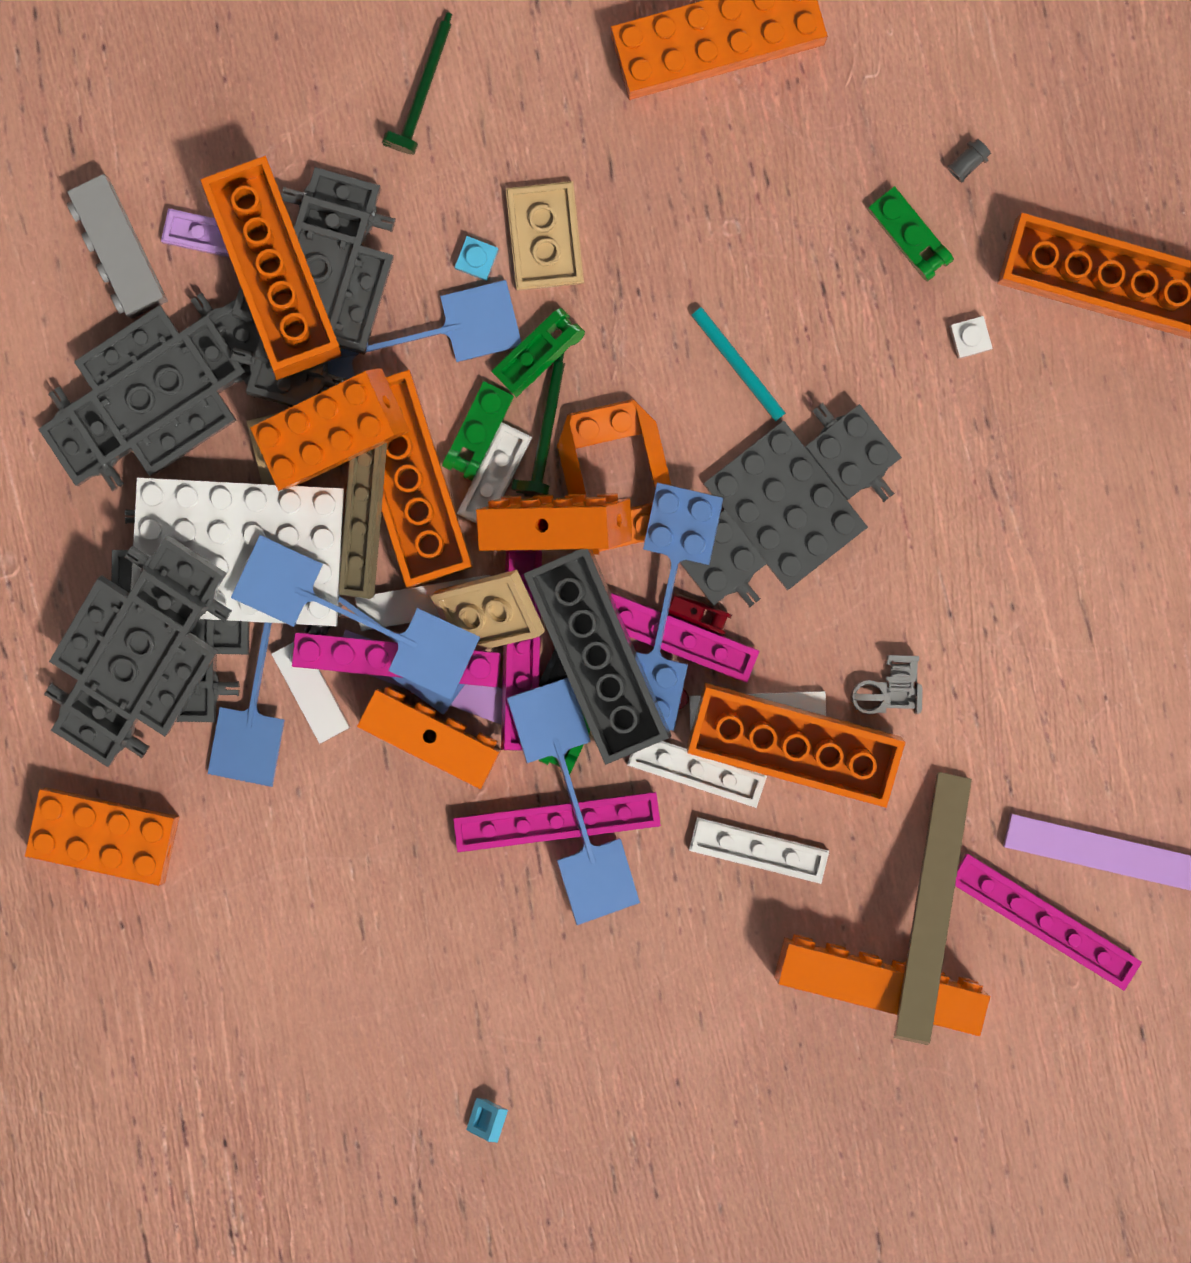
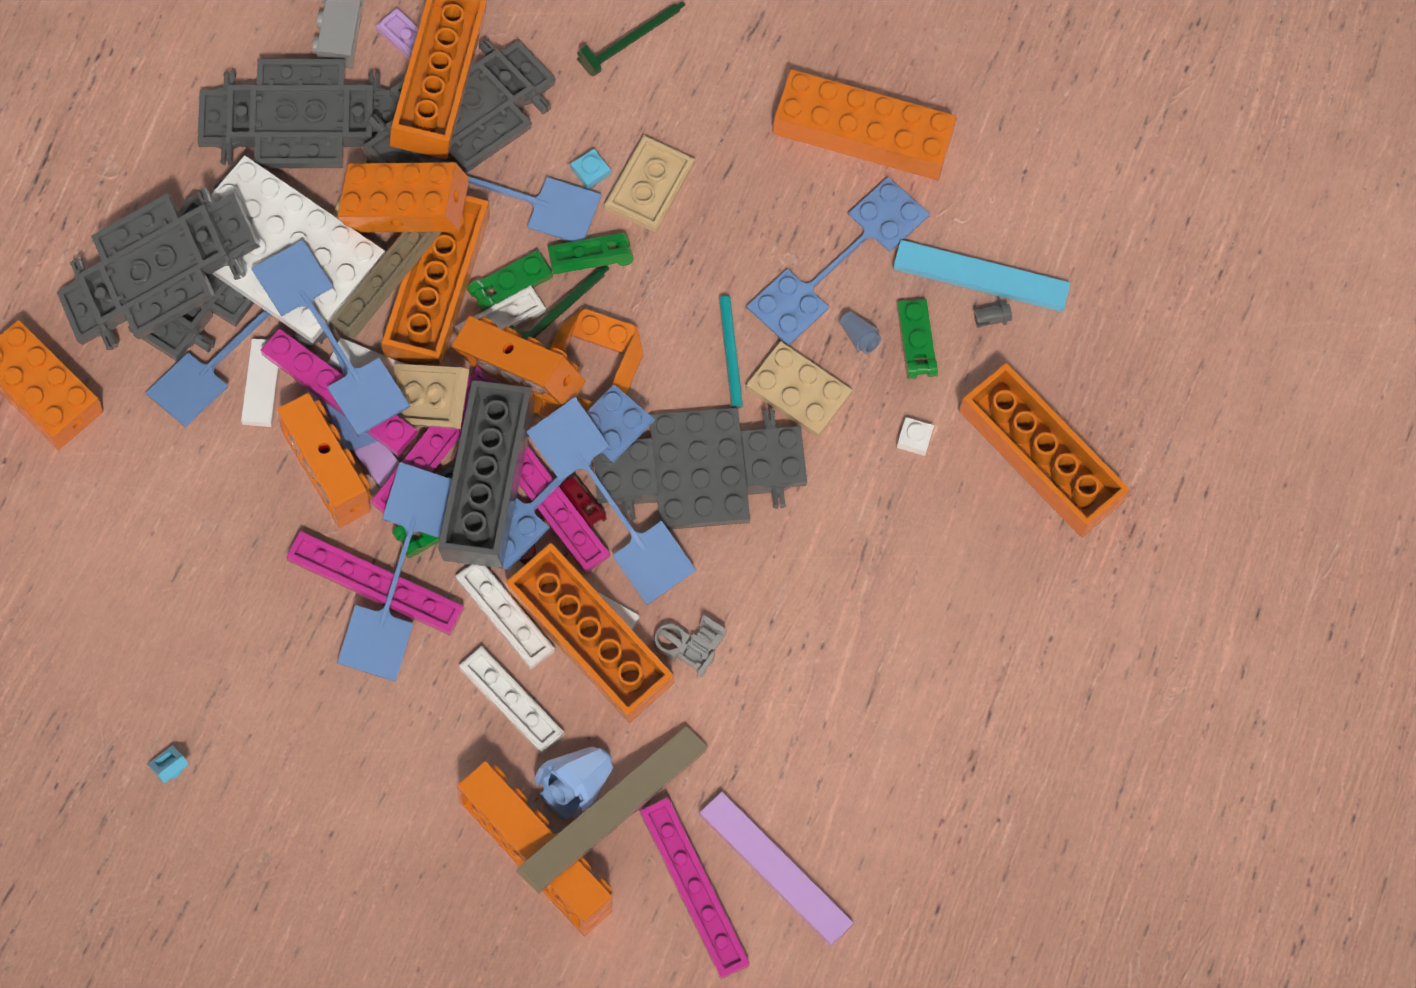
camera: 25 degrees right, 20 degrees down
(659, 570) = (652, 558): none -> medium blue hinge
(799, 120) = (792, 306): none -> medium blue hinge
(829, 361) = (799, 389): none -> tan plate
(852, 264) = (860, 332): none -> sand blue cone
(875, 894) = (574, 780): none -> light blue cone
(931, 123) = (981, 276): none -> medium azure tile

